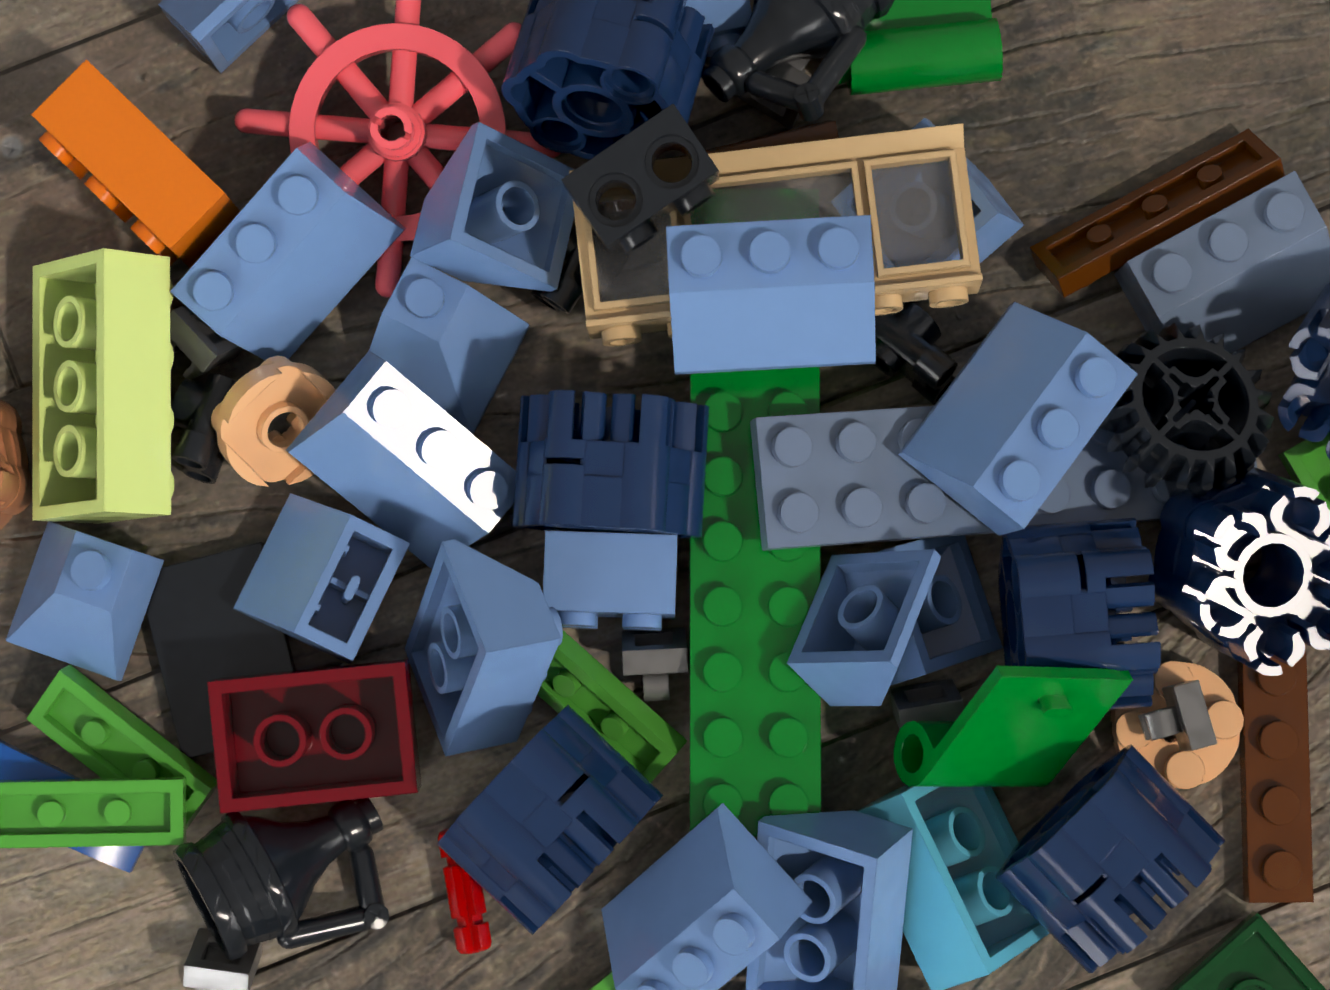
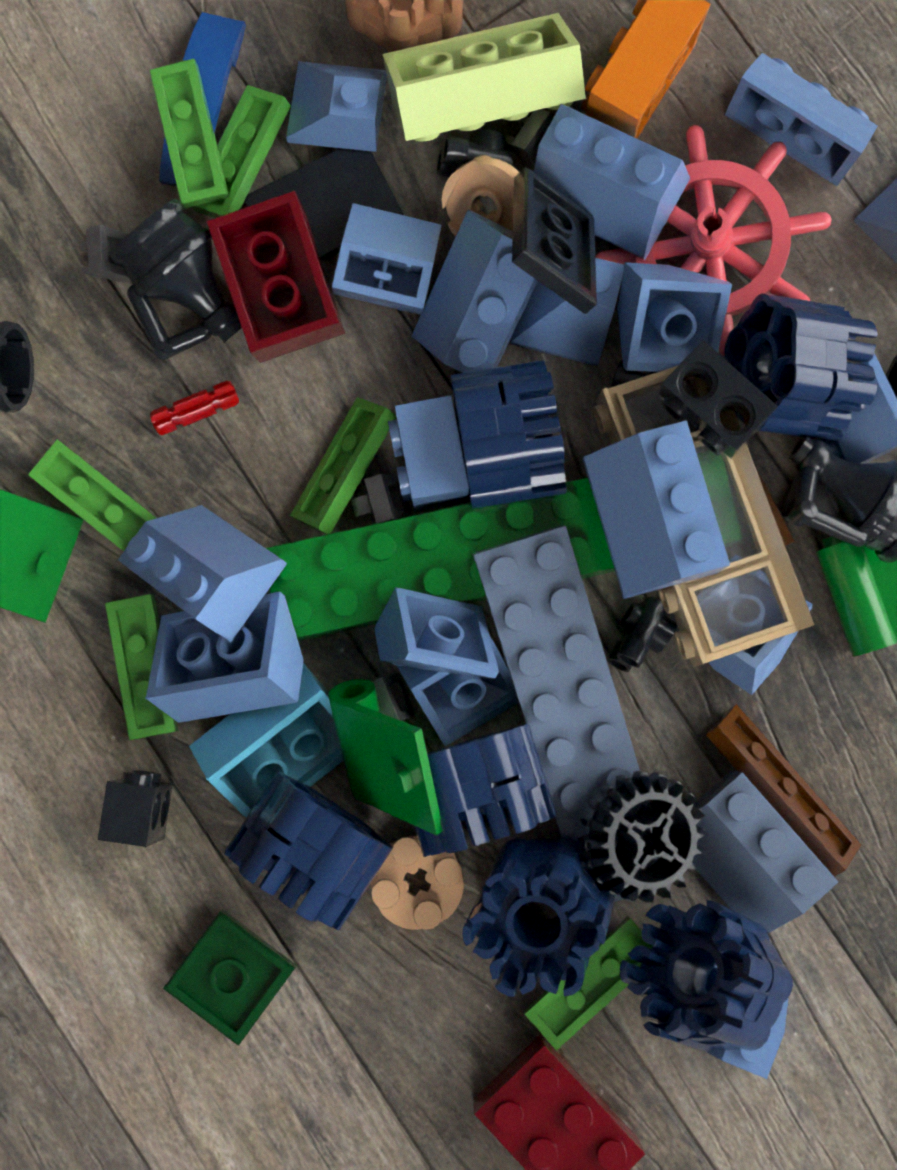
camera: 75 degrees right, 0 degrees up
(366, 344) = (554, 240): none -> black tile
(480, 648) = (359, 374): medium blue slope -> none
(538, 820) = (258, 440): dark blue piece -> none
(1017, 417) = (610, 713): medium blue slope -> none
(1184, 717) = (421, 883): flat silver tile -> none
(1275, 785) = (389, 963): reddish brown plate -> none

